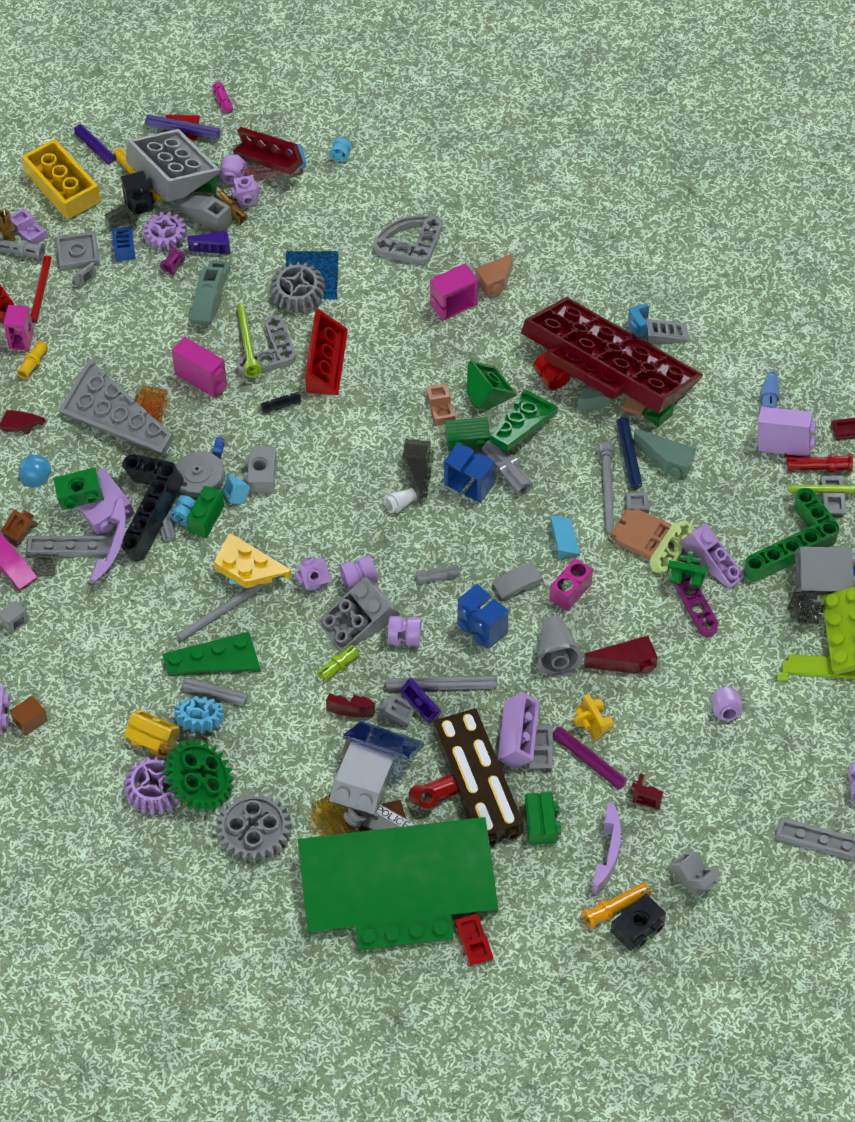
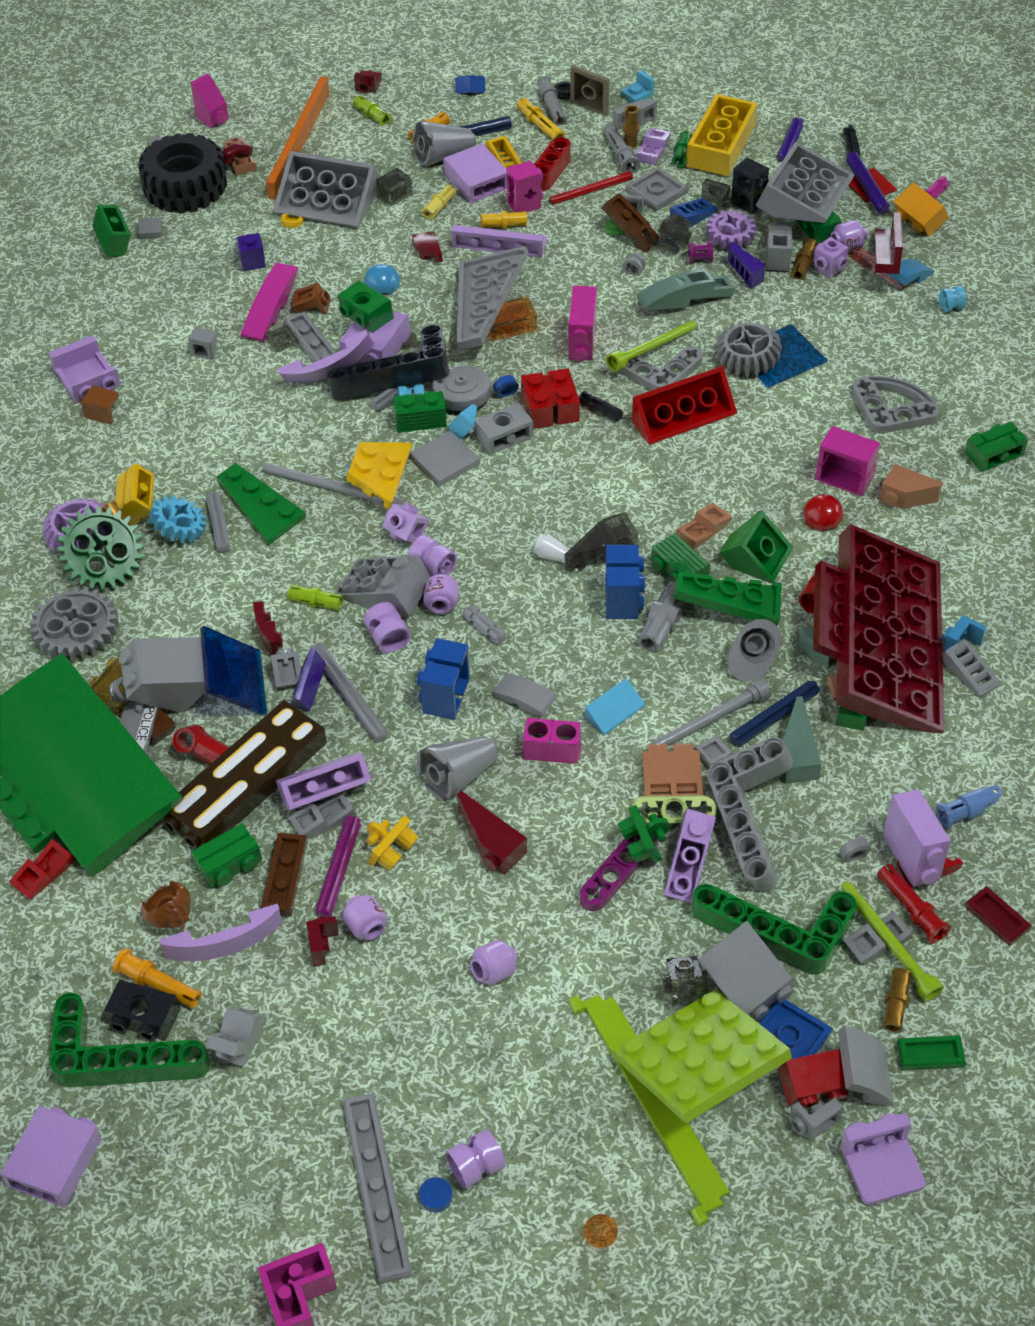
camera: 60 degrees right, 5 degrees down
(49, 211) = (680, 149): none -> green pin
(58, 370) = (496, 240): none -> lavender fence
(98, 295) = (612, 228): none -> bright green plate
(111, 283) = (631, 222): none -> reddish brown hinge
(128, 111) = (851, 140): none -> black axle
(144, 264) = (674, 232): none -> clear smoke brick
(152, 306) = (634, 264): none -> light grey bush
(241, 114) = (921, 210): none -> light orange brick
(254, 425) = (544, 391): none -> red piece
(258, 520) = (445, 458): none -> light grey tile
(396, 584) = (441, 593): none -> lavender head
(479, 332) = (823, 512): none -> red hair
(493, 208) = (996, 446): none -> green brick
(563, 870) = (167, 906): none -> dark orange hair
(574, 433) = (754, 650): none -> light grey piece
(577, 791) = (285, 872): none -> reddish brown plate
(646, 758) = (365, 917): none -> lavender head
(667, 955) = (116, 1057): none -> green beam
(701, 509) = (740, 813): none -> light grey beam
(720, 1021) = (51, 1155): none -> lavender brick
(764, 469) = (855, 849): none -> light grey tile

